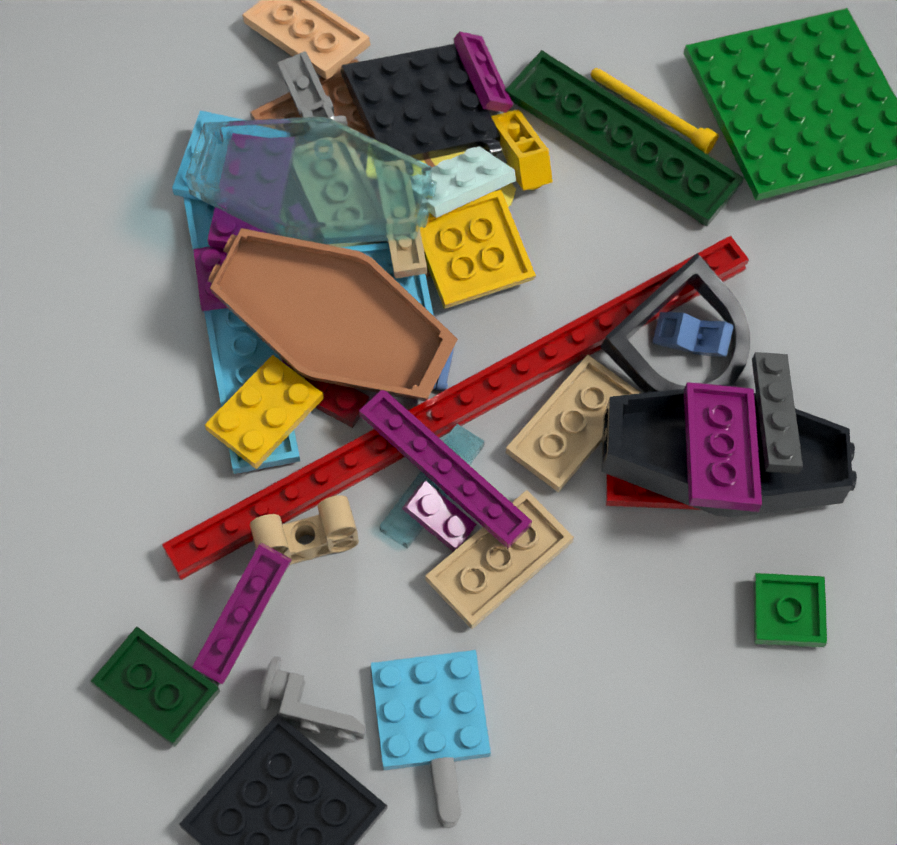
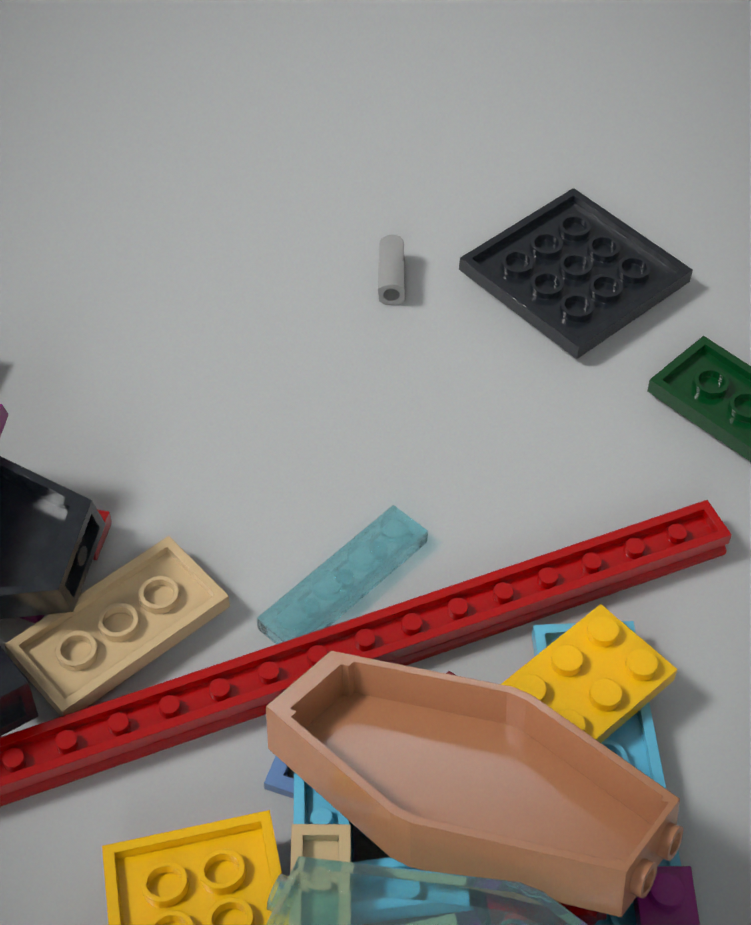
camera: 170 degrees left, 15 degrees down
(241, 613) = (618, 426): magenta plate -> none
(289, 689) = (540, 343): light grey piece -> none
(332, 531) = (534, 523): tan beam -> none
(430, 709) = (395, 346): medium azure plate -> none
(439, 516) = (344, 523): plate -> none
(445, 468) = (330, 564): magenta plate -> none
(487, 573) = (272, 474): tan plate -> none

